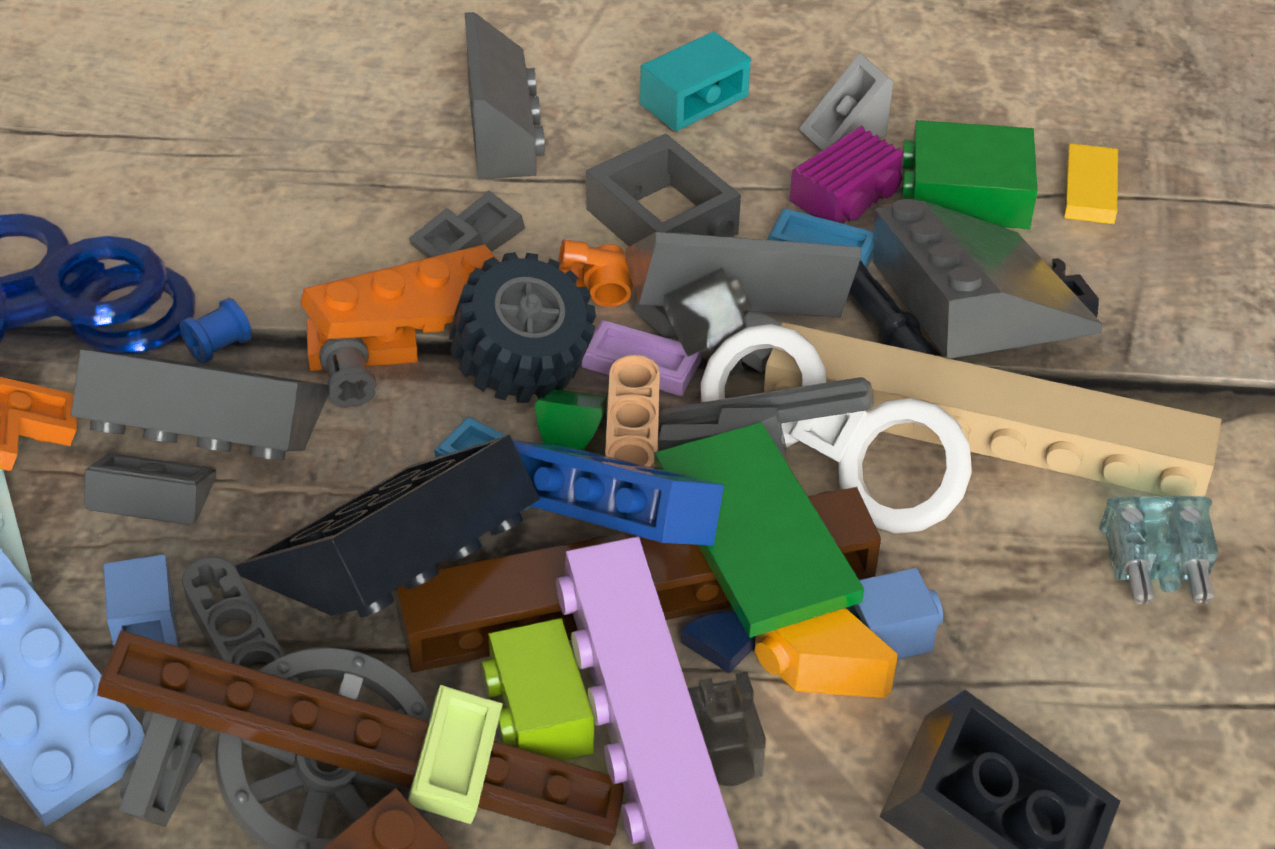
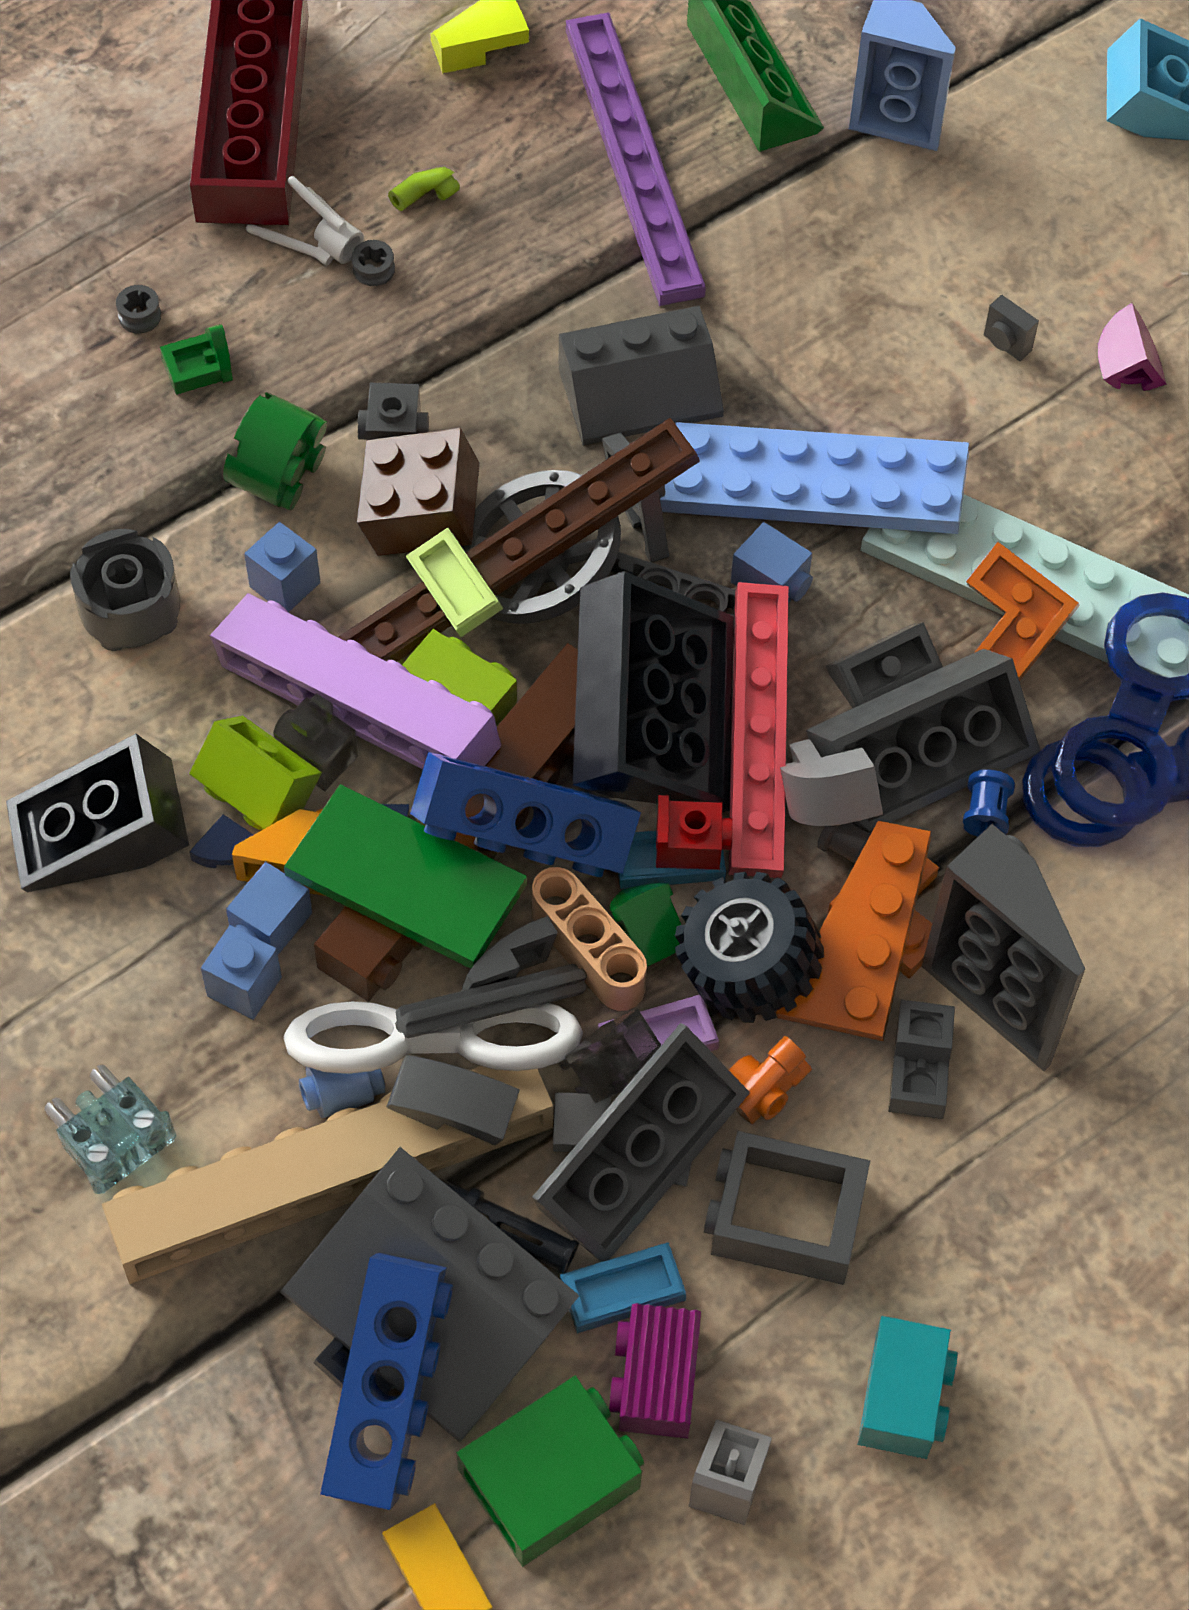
camera: 140 degrees right, 15 degrees up
(314, 483) = (759, 729): none -> coral plate
(343, 375) = (830, 787): none -> light grey brick
(350, 165) = (1005, 945): none -> dark grey slope
(471, 420) = (691, 834): none -> red brick
(501, 103) = (1041, 1202): dark grey slope -> none
(811, 727) = (253, 772): none -> lime brick
(865, 348) = (453, 1096): none -> dark grey slope
(881, 713) = (218, 843): none -> dark blue tile
(920, 458) = (339, 1091): none -> medium blue brick
(963, 576) = (241, 972): none -> medium blue brick
(1060, 234) = (351, 1468): none -> blue brick

